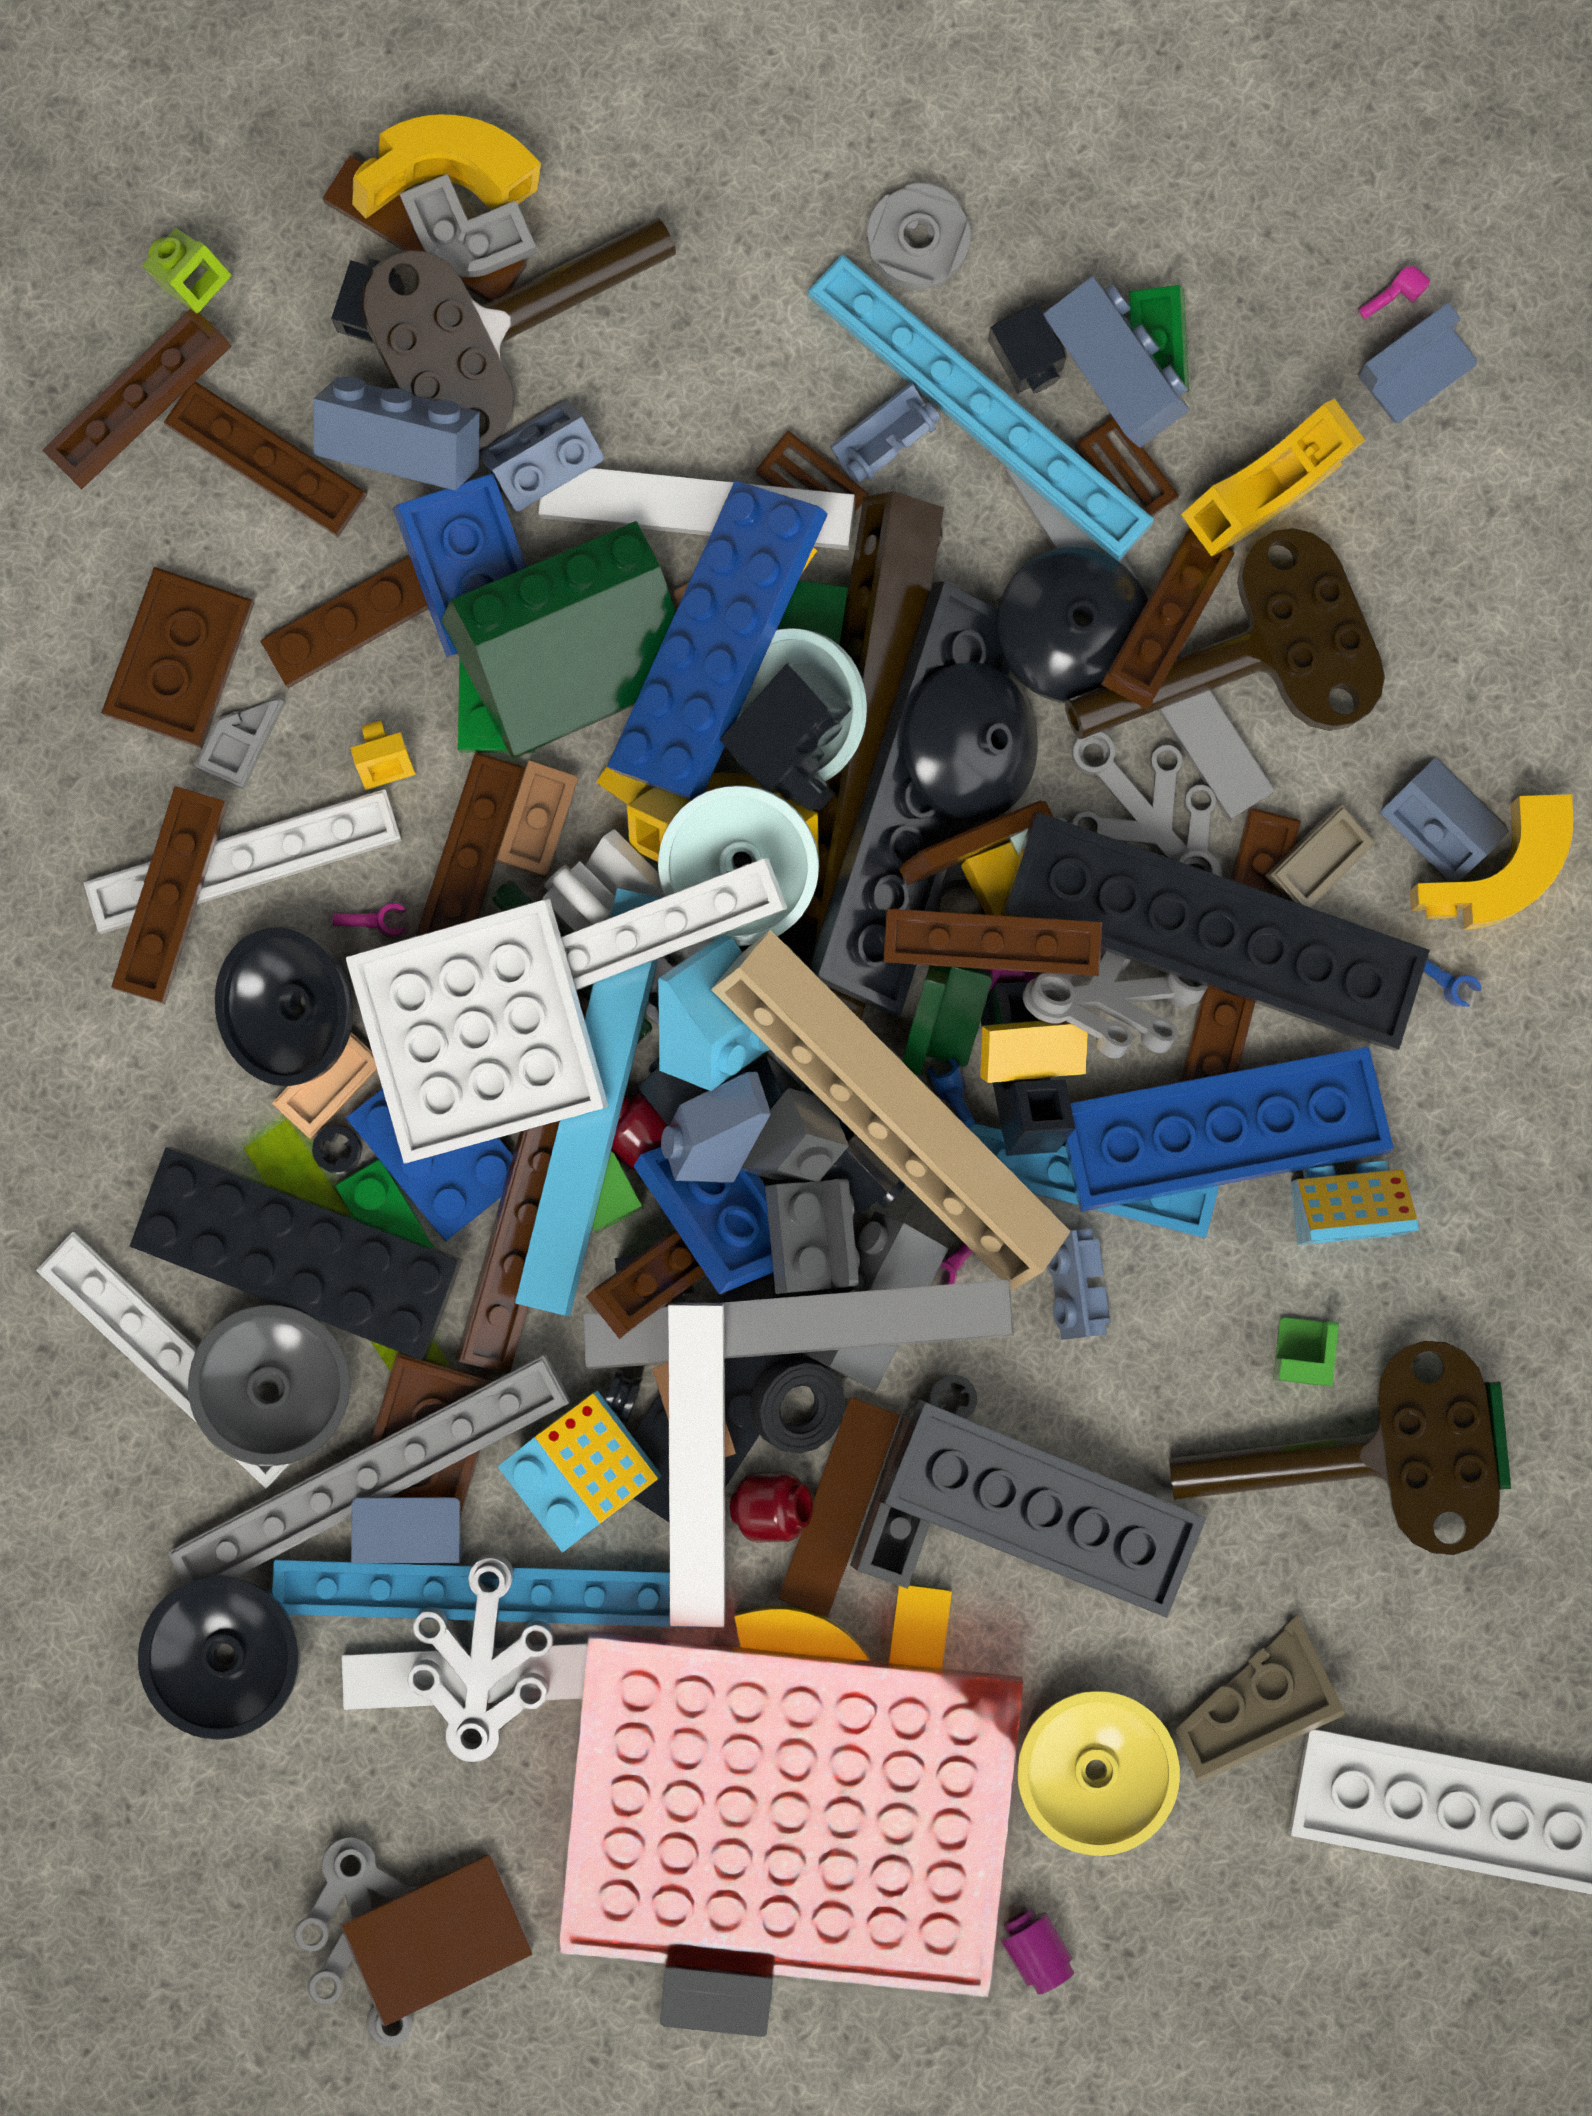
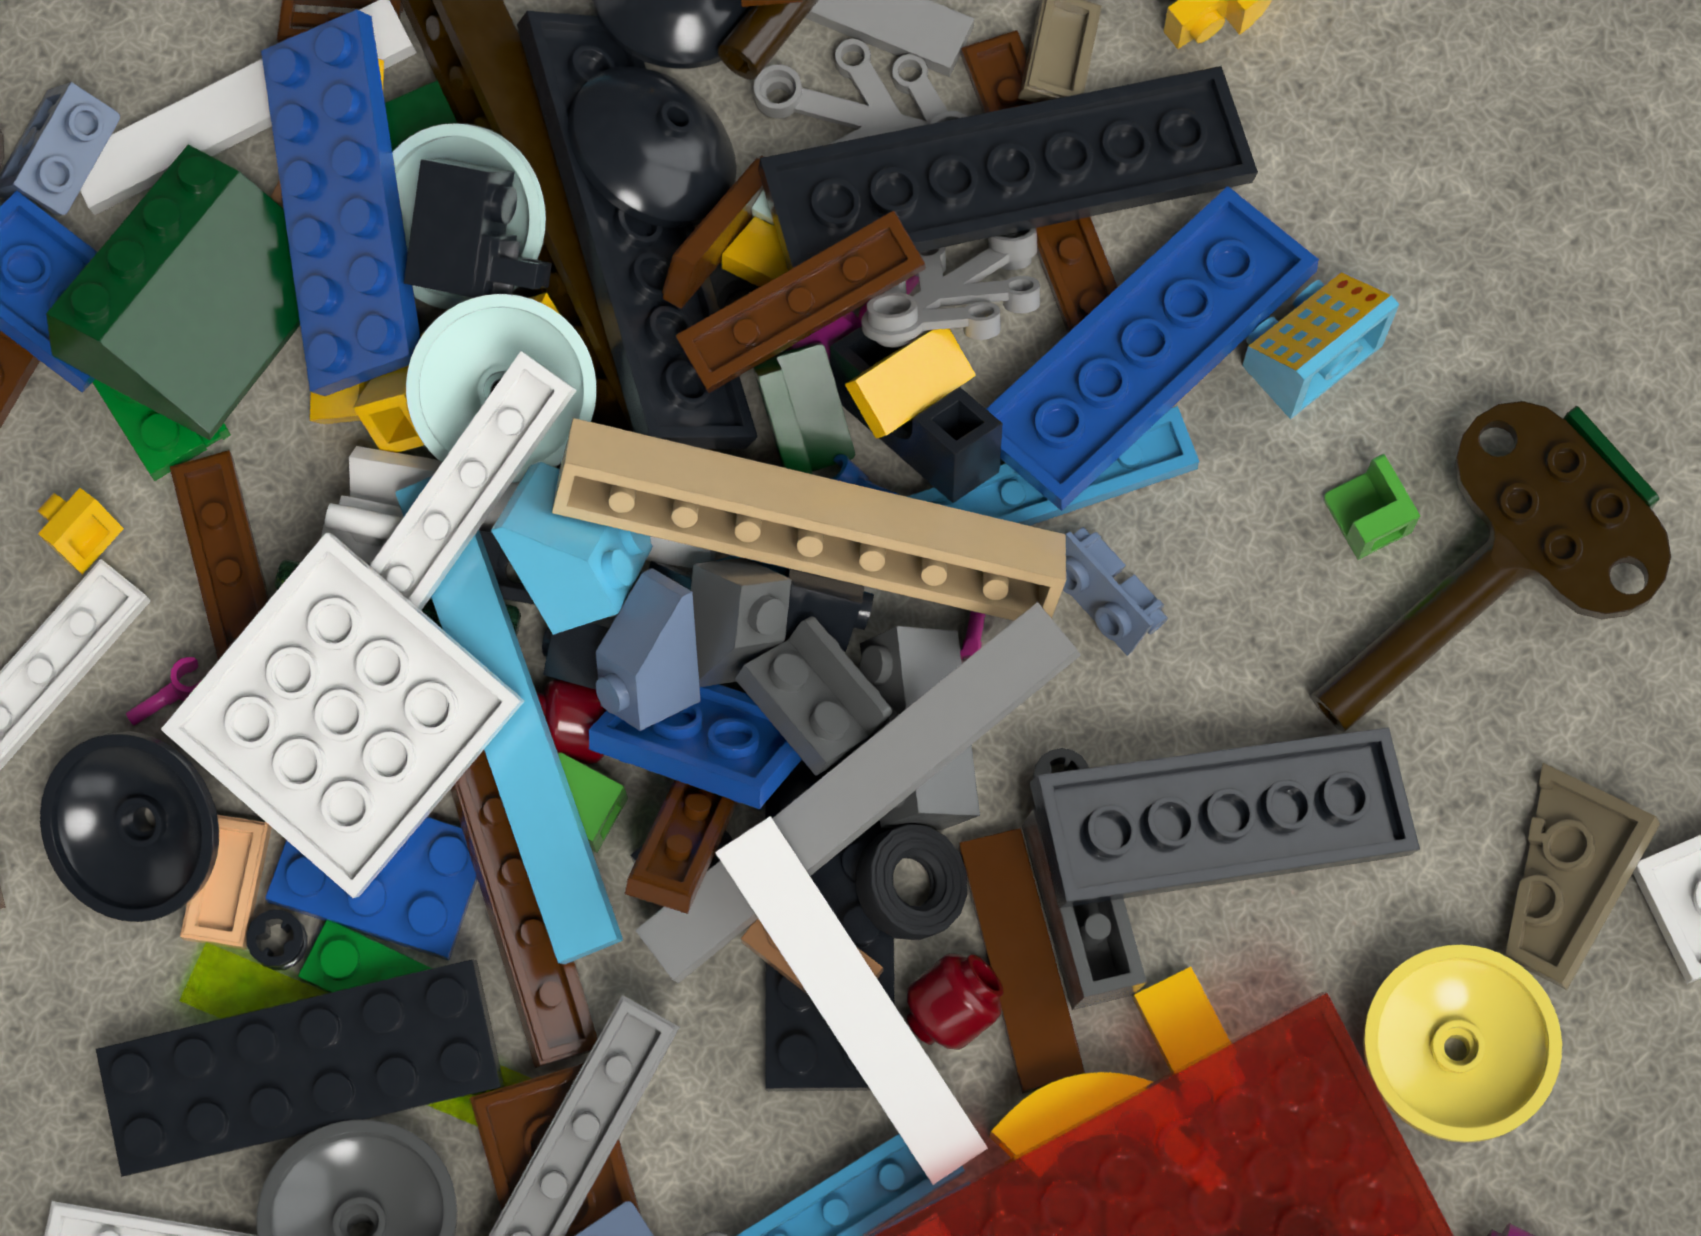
camera: 30 degrees left, 10 degrees down
(536, 819) = (272, 490): medium nougat plate -> none
(579, 1471) = (736, 1091): slope -> none
(623, 1394) = (729, 992): black bush -> none
(1451, 983) = (1263, 87): blue hand -> none

